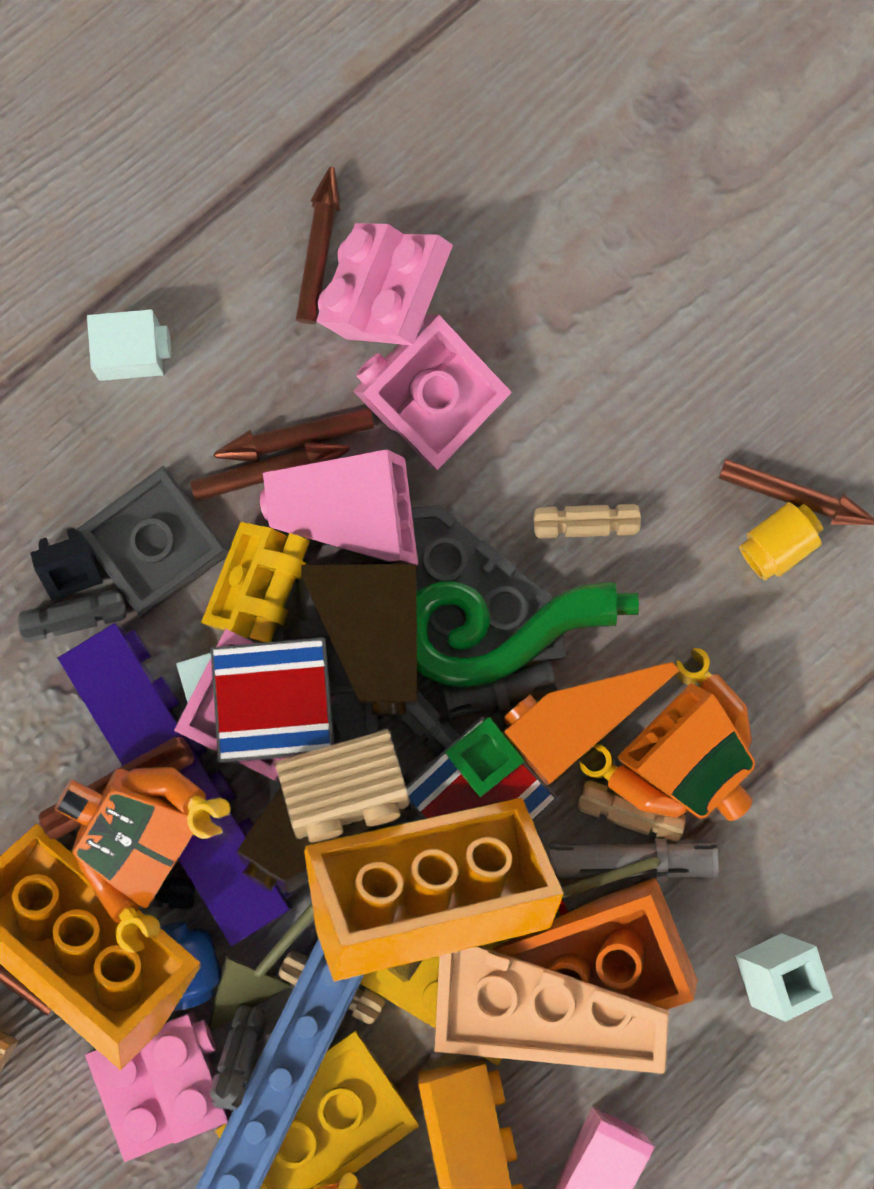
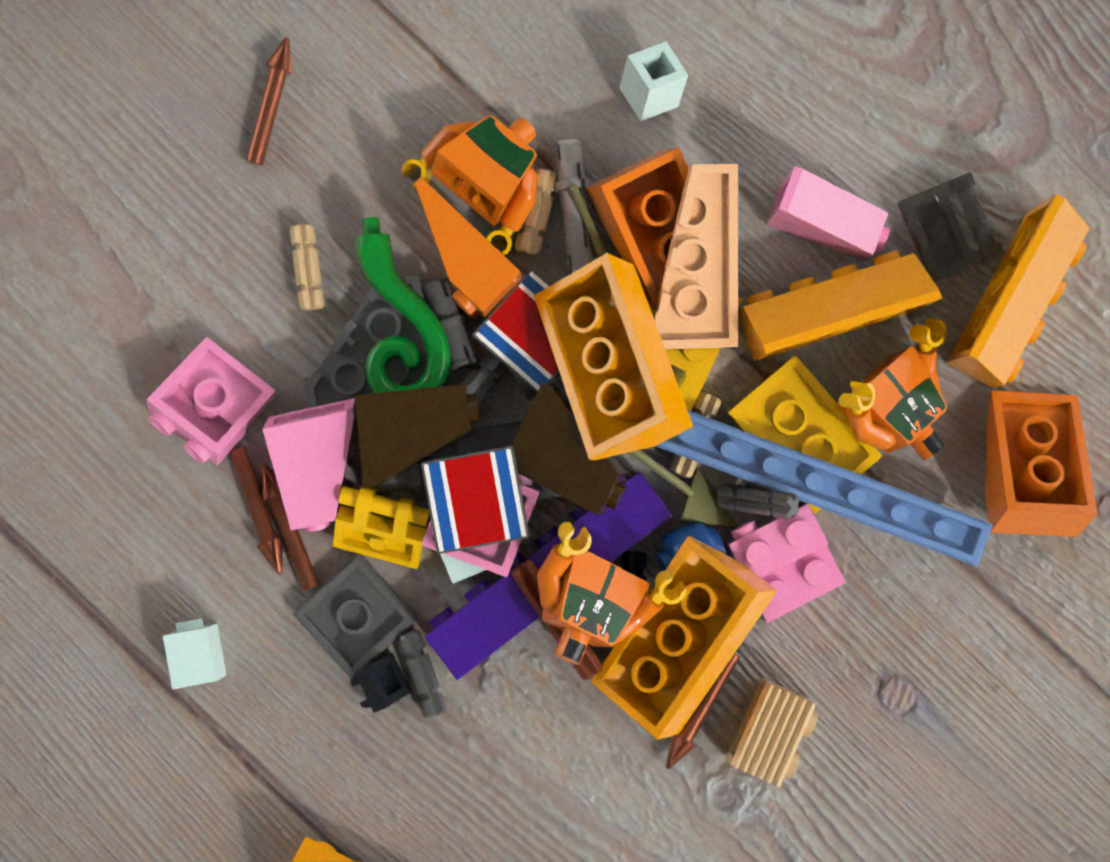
camera: 90 degrees left, 5 degrees up
(325, 205) = (62, 504): copper piece -> none
(343, 786) = (539, 434): tan brick -> none
(383, 284) = (125, 448): bright pink plate -> none
(484, 757) = (504, 327): green plate -> none
(782, 540) = (308, 110): yellow brick -> none

